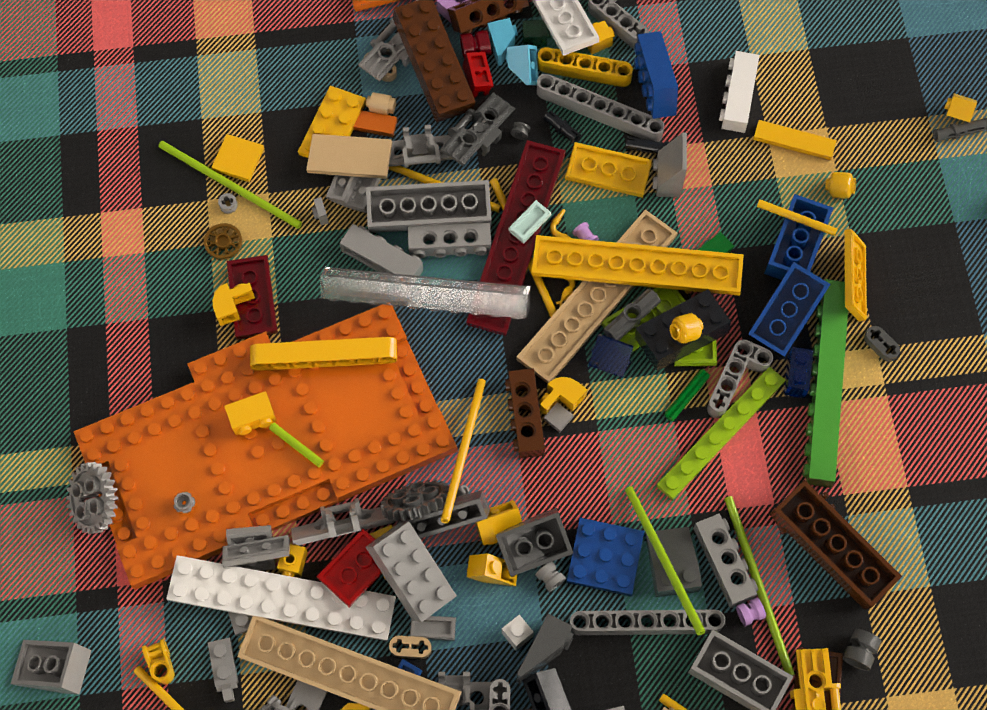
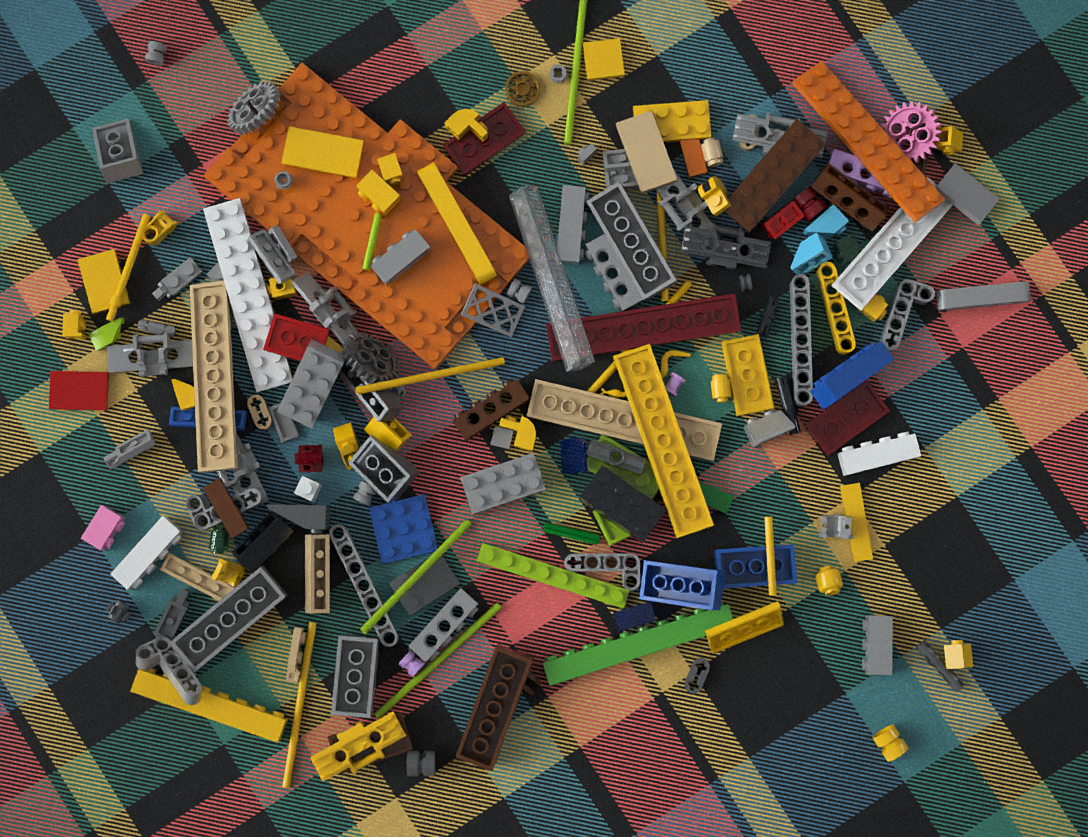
camera: 65 degrees right, 15 degrees up
(177, 450) = (322, 152): none -> yellow tile
(232, 389) = (390, 169): none -> yellow brick
(327, 422) = (400, 257): none -> light grey brick
(409, 375) = (479, 318): none -> light grey window
(420, 332) = (523, 293): none -> light grey wheel
(425, 114) = (715, 195): none -> yellow brick
(486, 615) = (309, 458): none -> dark red brick
(529, 221) = (659, 332): light aqua tile -> none
(607, 435) = (503, 483): none -> light grey brick
(610, 196) = (720, 388): none -> yellow brick
(612, 664) = (317, 573): none -> tan brick
(686, 328) = (615, 507): yellow head -> none
(695, 104) = (847, 418): none -> dark red plate
(792, 155) = (835, 526): none -> light grey piece
(921, 170) = (878, 645): none -> light grey brick

